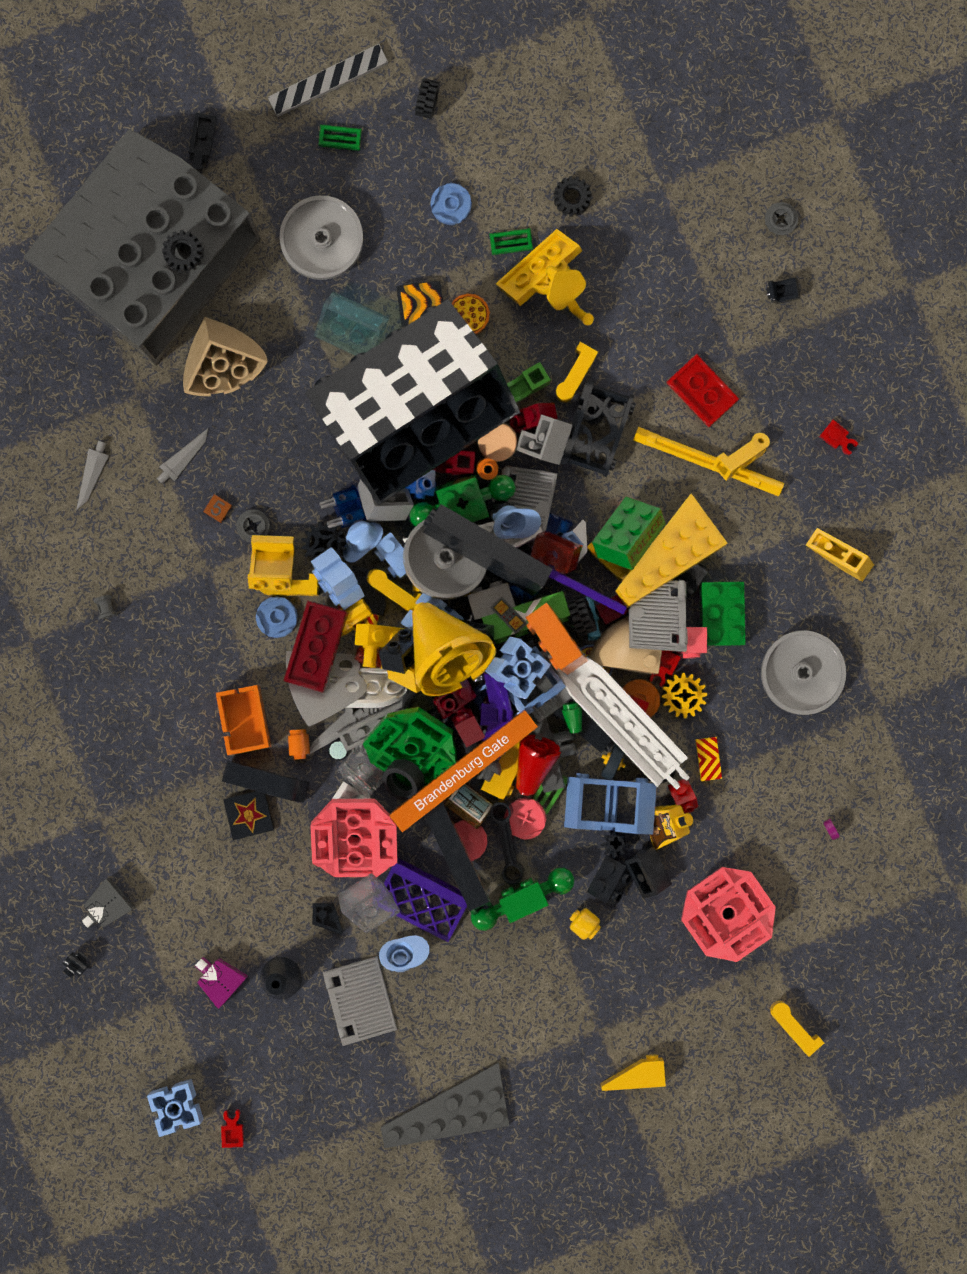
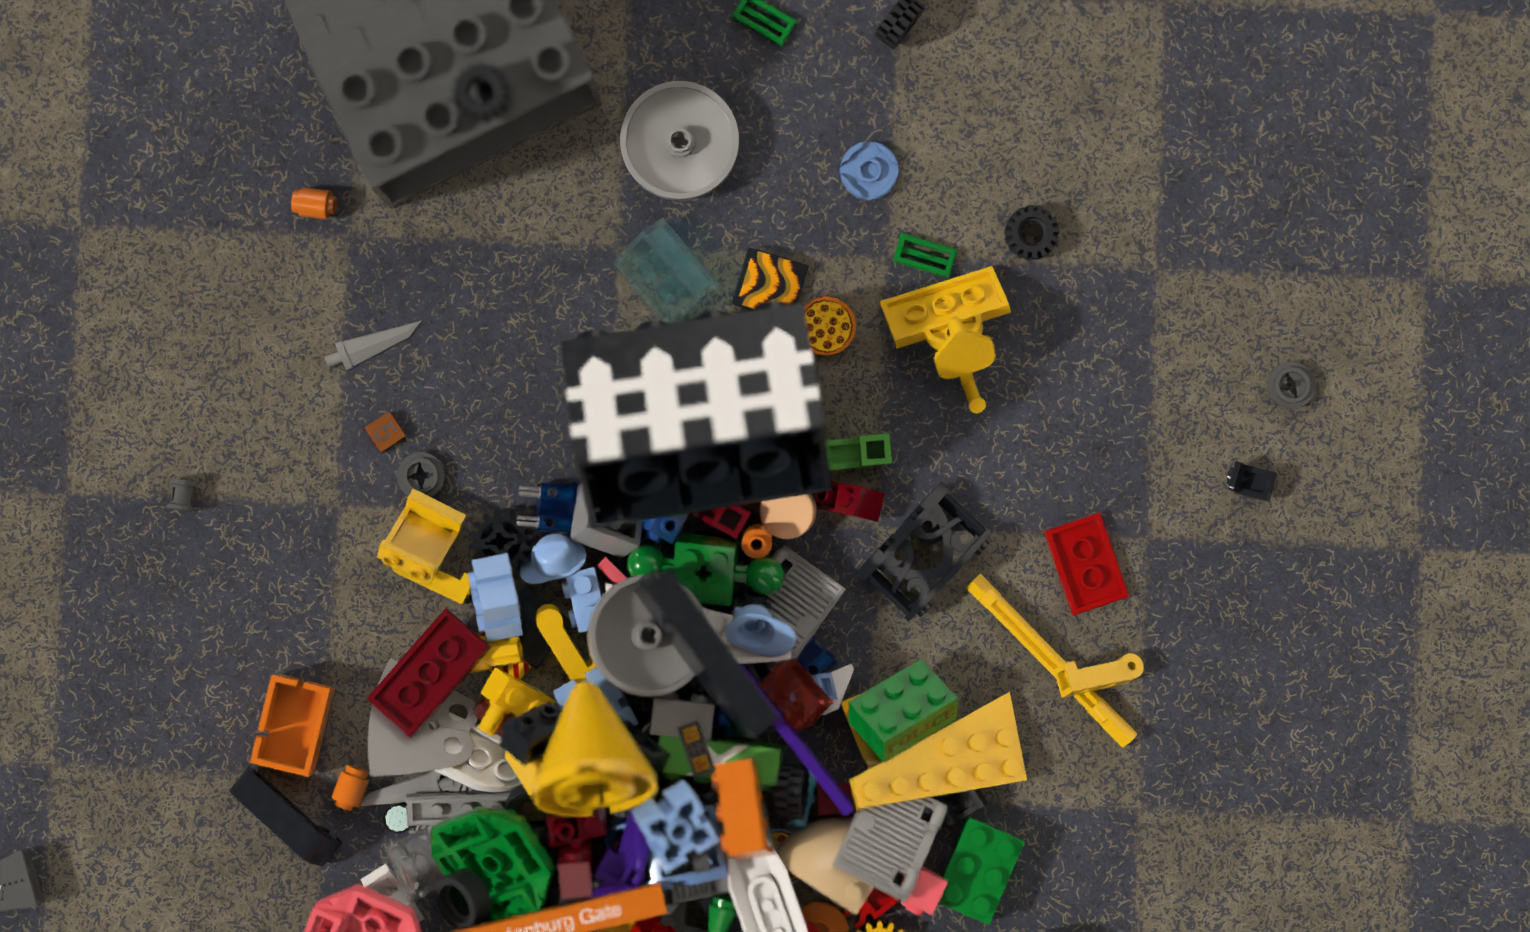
camera: 25 degrees right, 0 degrees up
(94, 464) = (251, 303): light grey bar -> none
(105, 383) = (313, 203): none -> orange brick
(221, 360) = (477, 242): tan brick -> none
(248, 815) = (243, 850): black tile -> none
(281, 613) = (404, 614): medium blue tile -> none
(401, 531) = (610, 572): none -> coral tile
(547, 442) = (849, 543): light grey brick -> none
(567, 389) = (908, 483): yellow leg -> none
(836, 435) = (1233, 702): red plate -> none
(840, 554) = (1168, 861): yellow slope -> none

